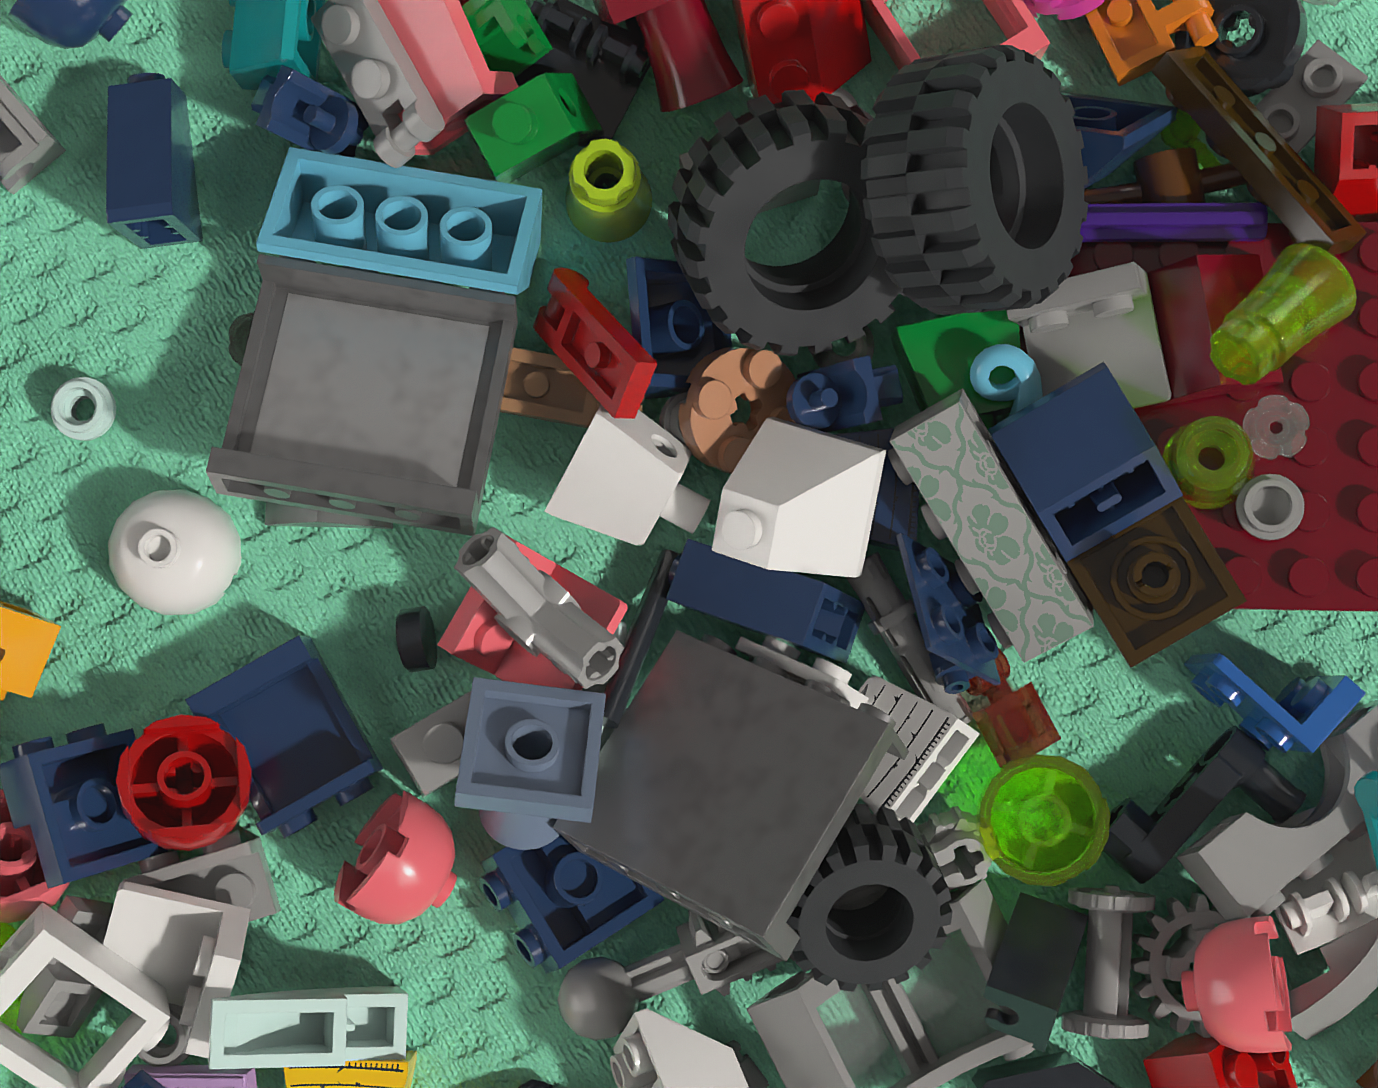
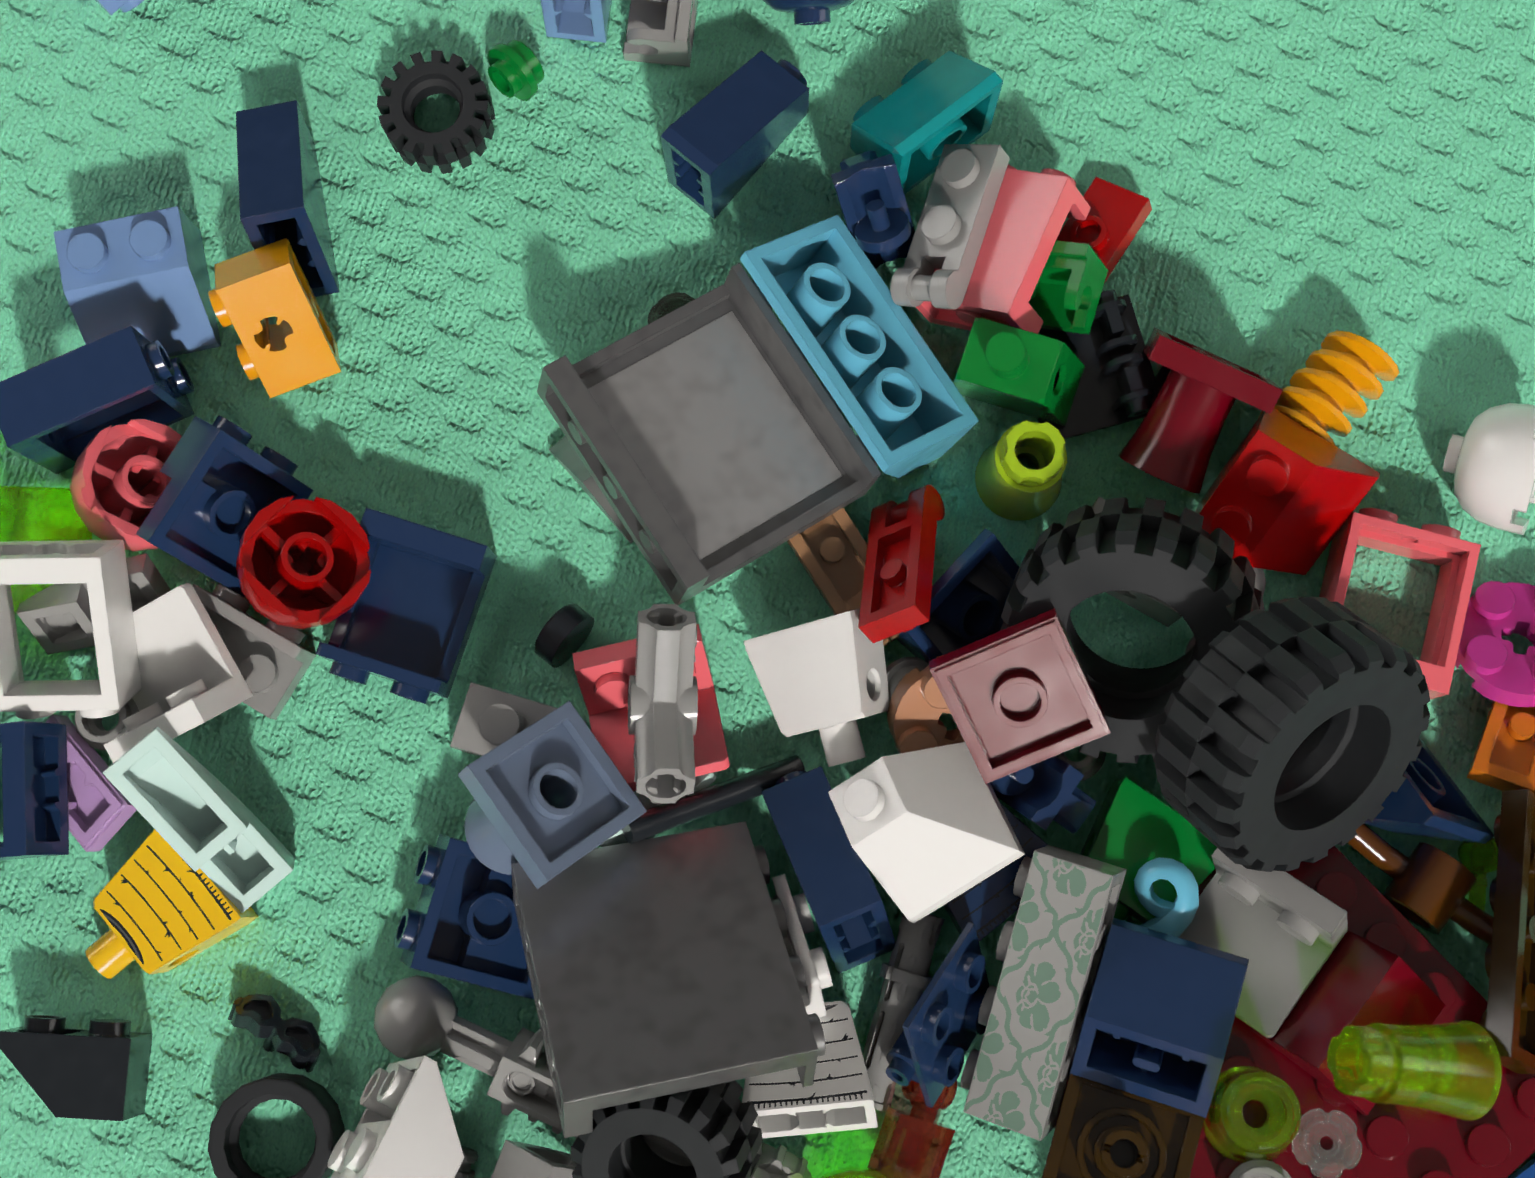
camera: 50 degrees right, 5 degrees down
(65, 403) = (509, 229): light aqua plate -> none
(174, 552) = (469, 403): white cylinder -> none
(401, 863) = (385, 776): coral cylinder -> none
(771, 348) = (1019, 696): none -> tile
(1175, 222) = (1407, 917): dark purple axle -> none

